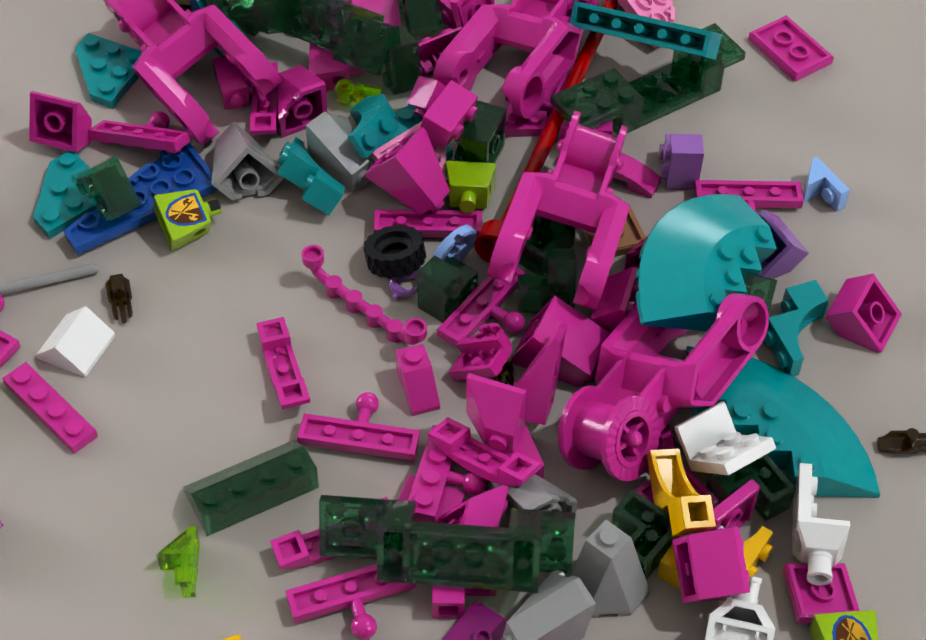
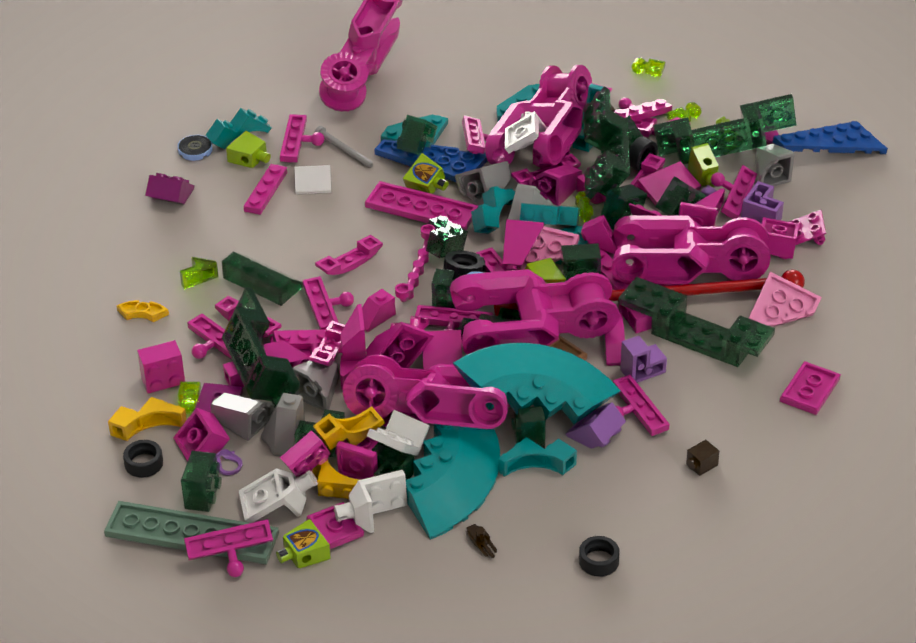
camera: 65 degrees right, 10 degrees down
(58, 122) = (455, 101): dark pink slope -> none
(119, 295) = (356, 180): dark brown piece -> none
(216, 74) = (523, 132): none -> white plate
(232, 249) = (418, 204): none -> dark pink plate
(334, 239) = (445, 237): none -> clear green brick
(448, 114) = (566, 230): dark pink slope -> none
(646, 30) = (726, 293): teal brick -> none
(825, 183) = (676, 436): light blue slope -> none
(864, 313) = (572, 488): dark pink slope -> none
(868, 178) = (702, 457): none -> dark brown brick

